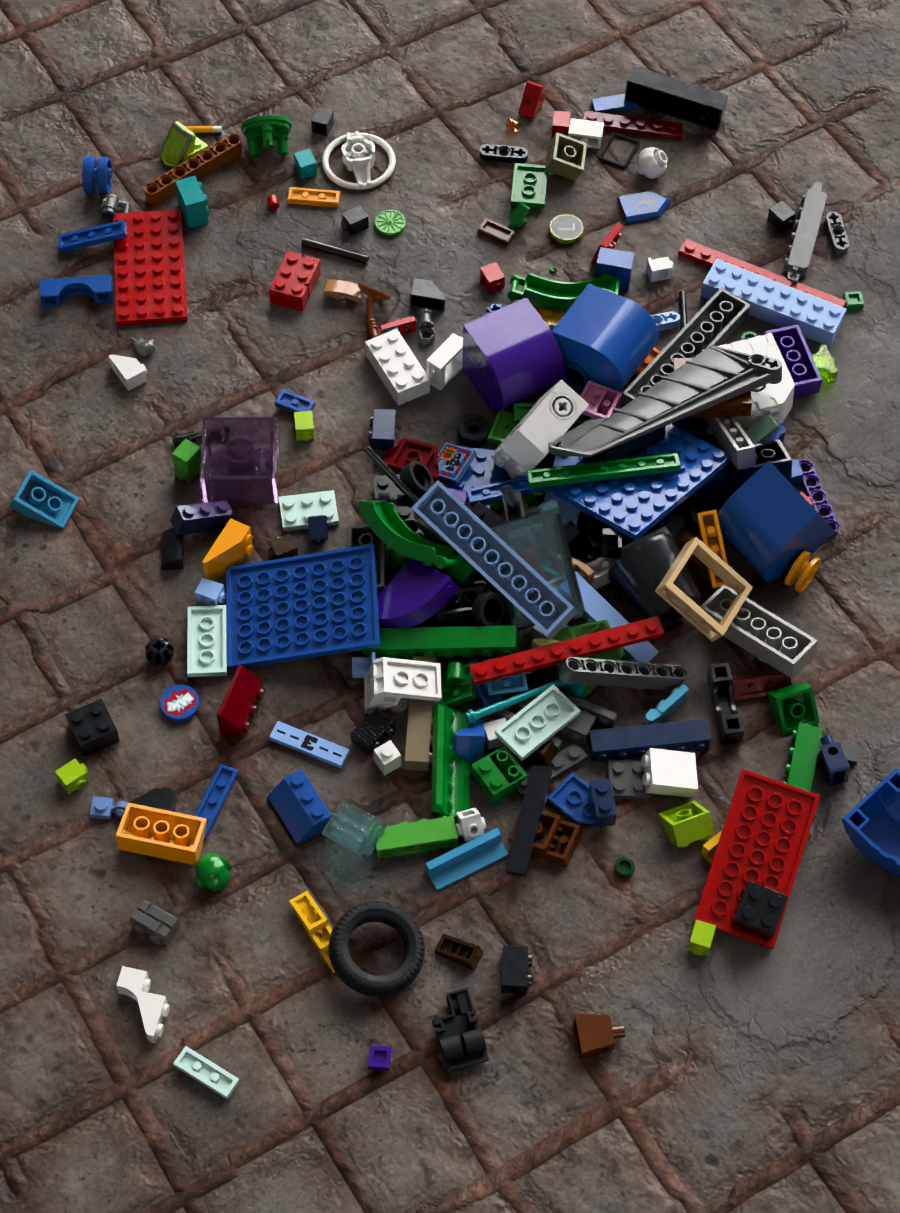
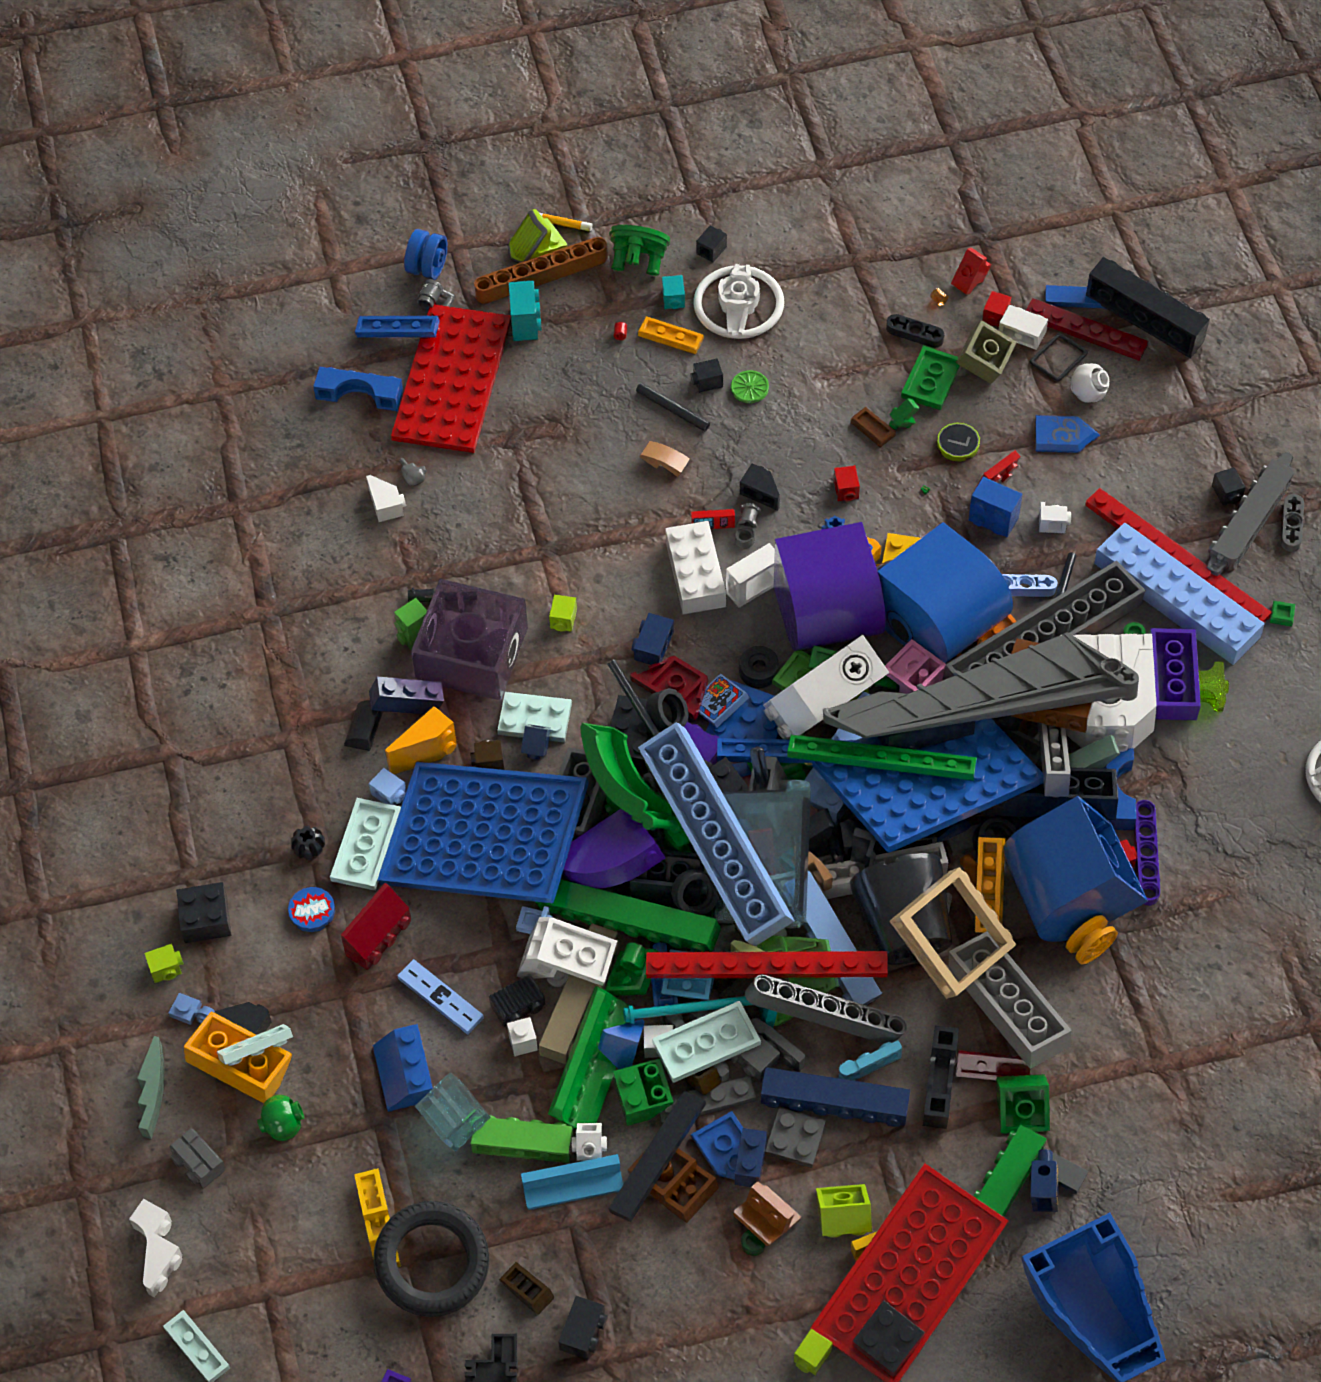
camera: 20 degrees right, 0 degrees up
(43, 500) = (239, 631): dark azure slope -> none
(94, 872) = (152, 1082): none -> sand green slope
(176, 818) = (255, 1045): none -> light aqua plate
(216, 795) = (315, 1030): blue tile -> none
(290, 280) = (610, 427): red piece -> none
(293, 402) = (561, 582): blue plate -> none
(372, 296) = (694, 474): dark orange dish -> none
(556, 294) = (913, 521): green windscreen -> none
(628, 842) = (766, 1214): none -> dark orange bracket
(669, 772) = (843, 1143): white brick -> none

